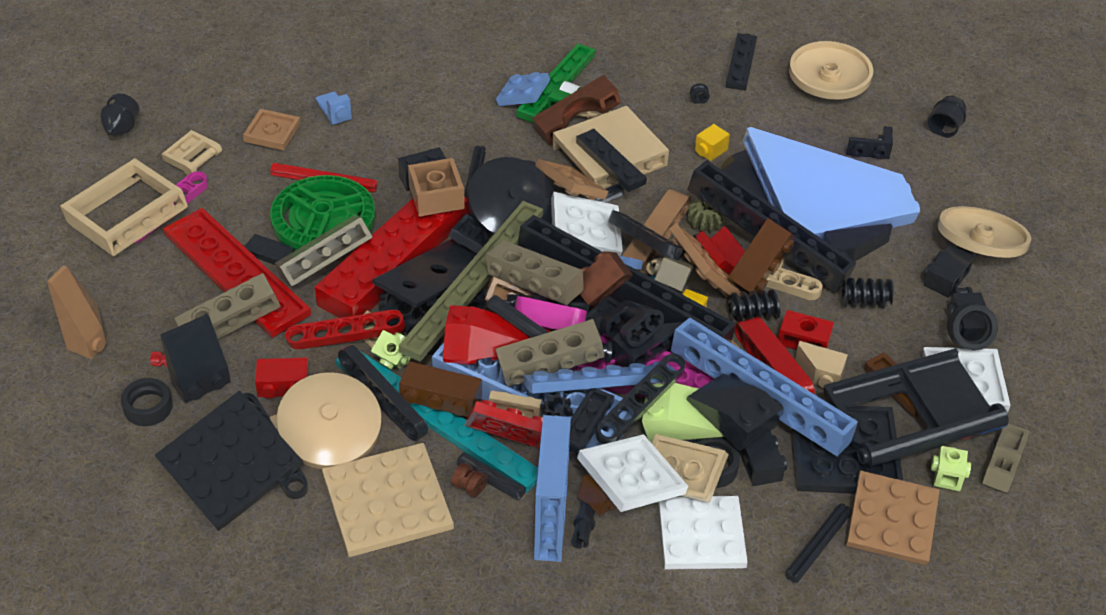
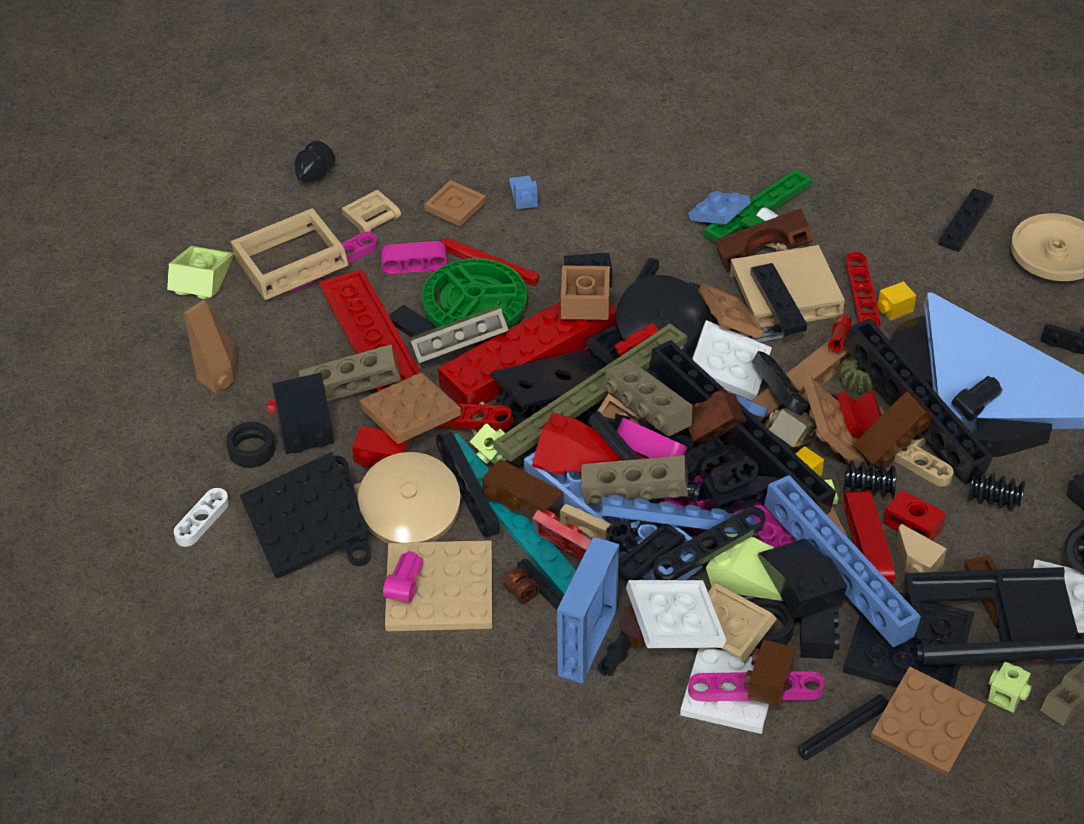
camera: 20 degrees right, 0 degrees up
(35, 242) = (198, 271): none -> yellowish green slope
(120, 497) = (202, 507): none -> white beam
(249, 187) = (413, 257): none -> dark pink beam
(299, 331) = (409, 408): none -> medium nougat plate
(354, 505) = (402, 583): none -> dark pink piece
(495, 222) = (635, 339): none -> red axle
(675, 178) = (839, 333): none -> red pin
(677, 135) = (862, 286): none -> red beam
(695, 91) = (900, 242): black bush -> none
(720, 532) = (716, 693): none -> dark pink beam
(743, 507) = (770, 672): none -> reddish brown brick
(820, 216) = (973, 401): none -> black piece

